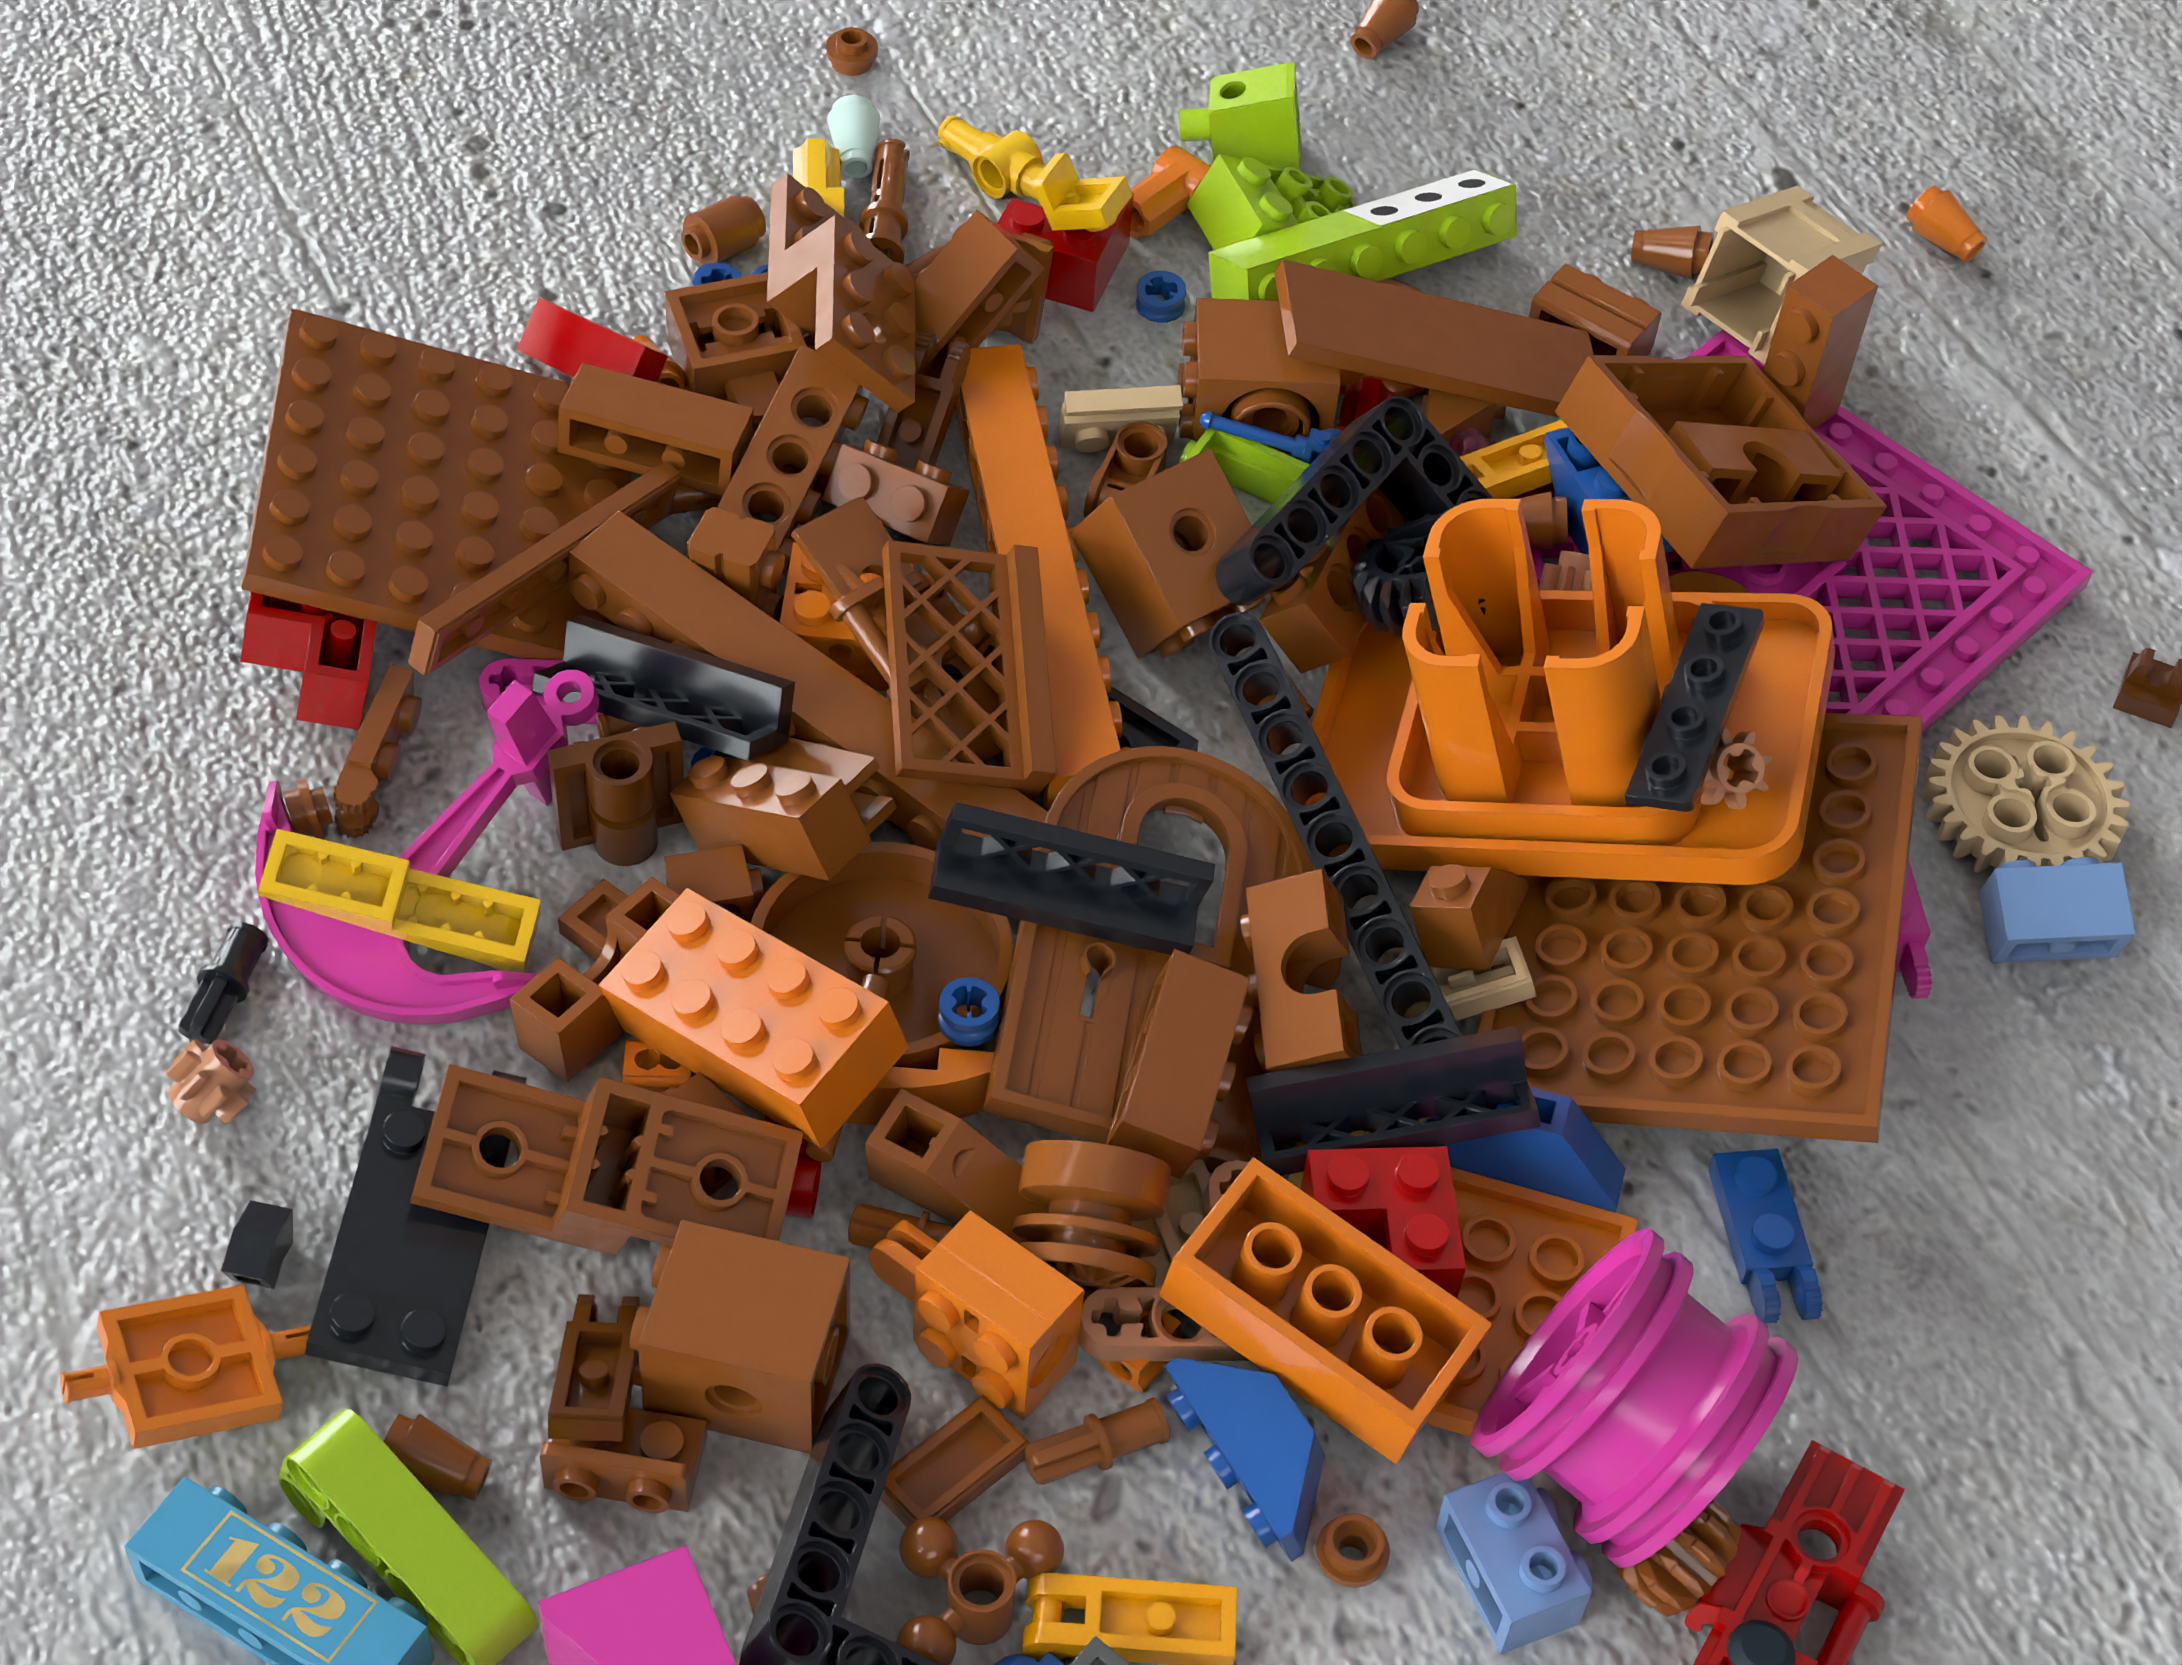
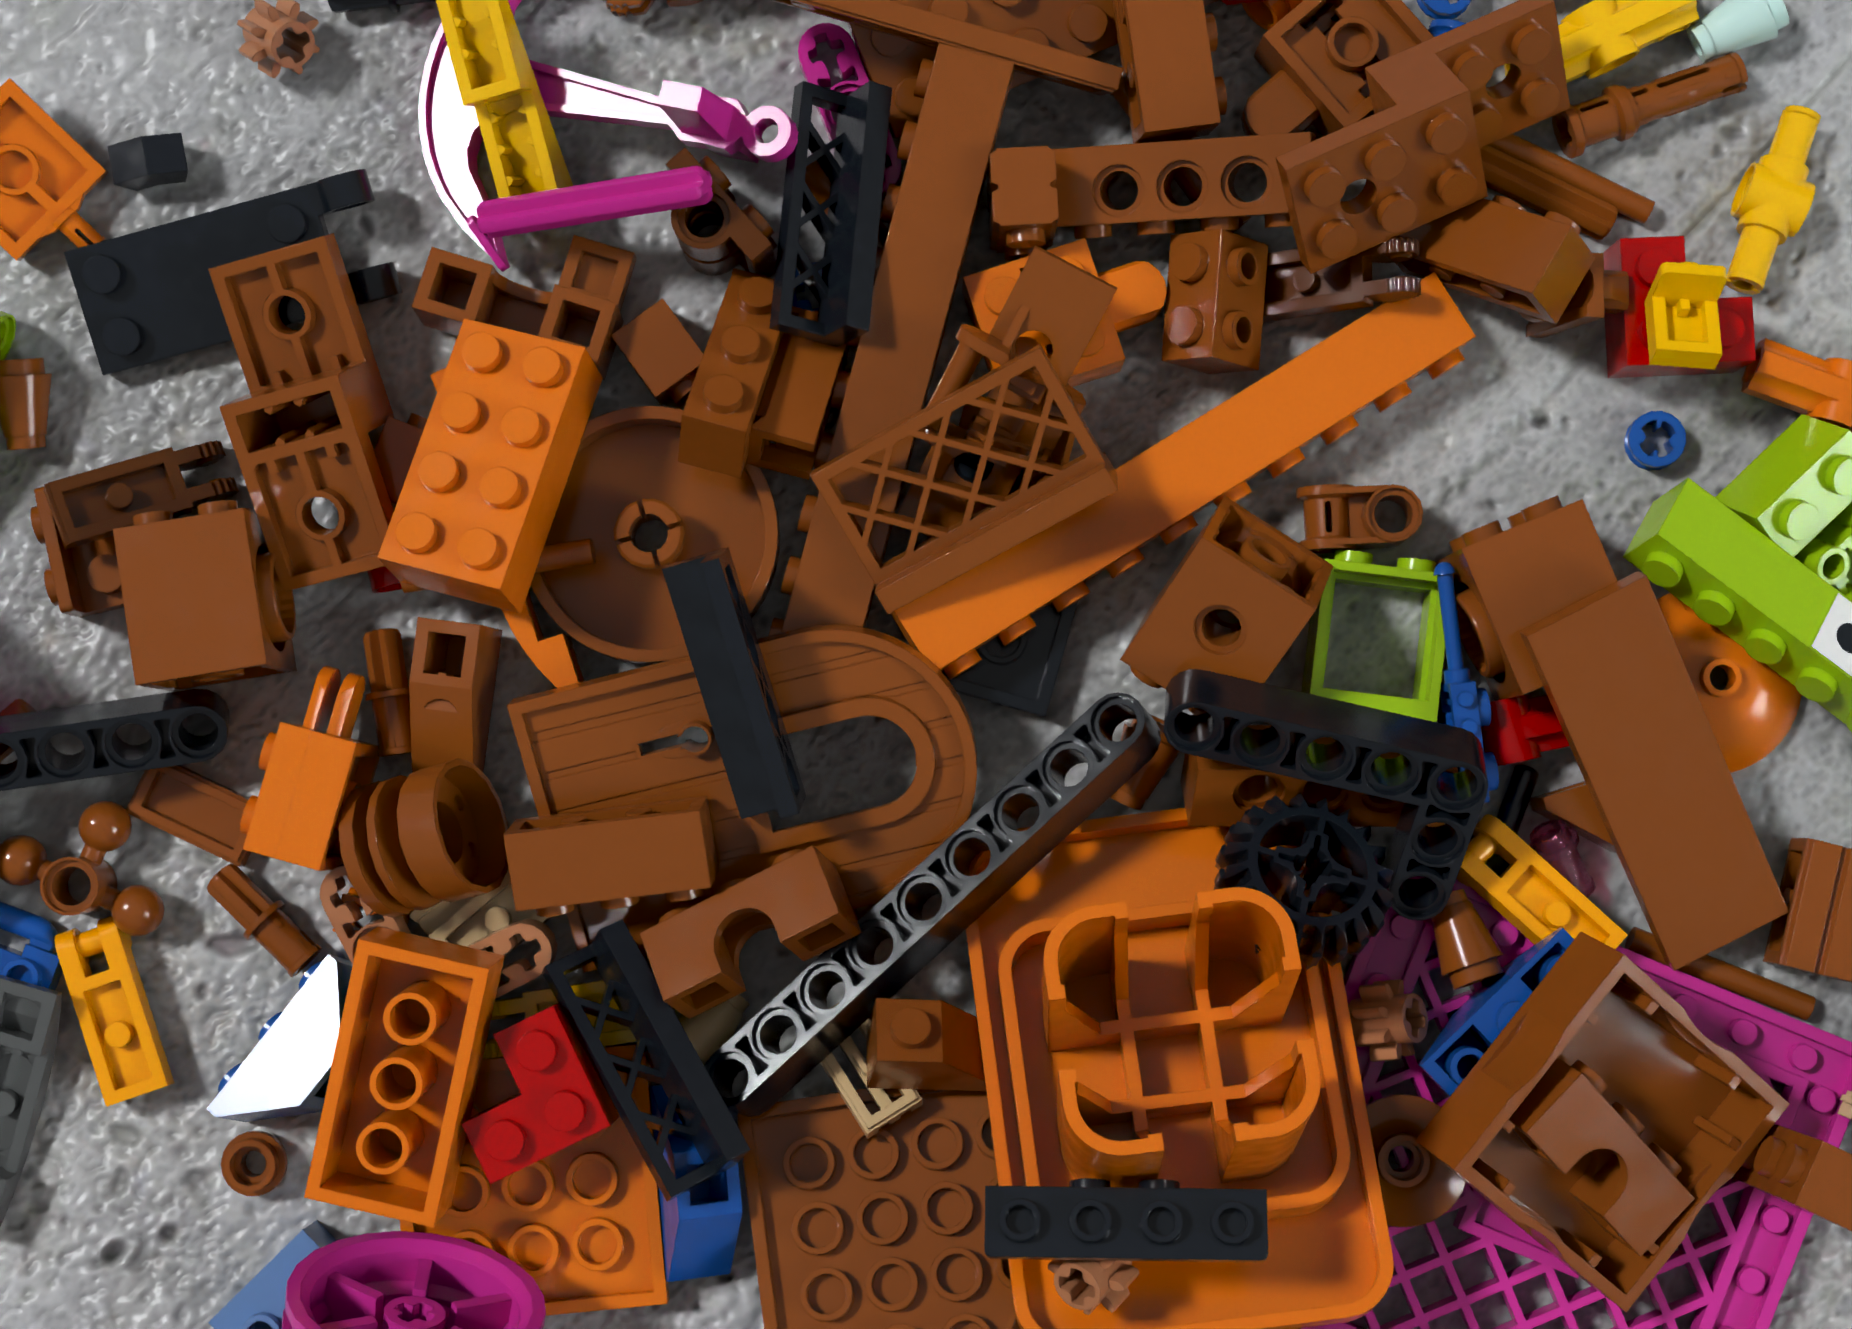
camera: 70 degrees right, 35 degrees up
(550, 846) = (595, 202): none -> dark pink axle
(968, 1030) = (593, 625): blue bush -> none
(1095, 416) = (1417, 456): tan plate -> none

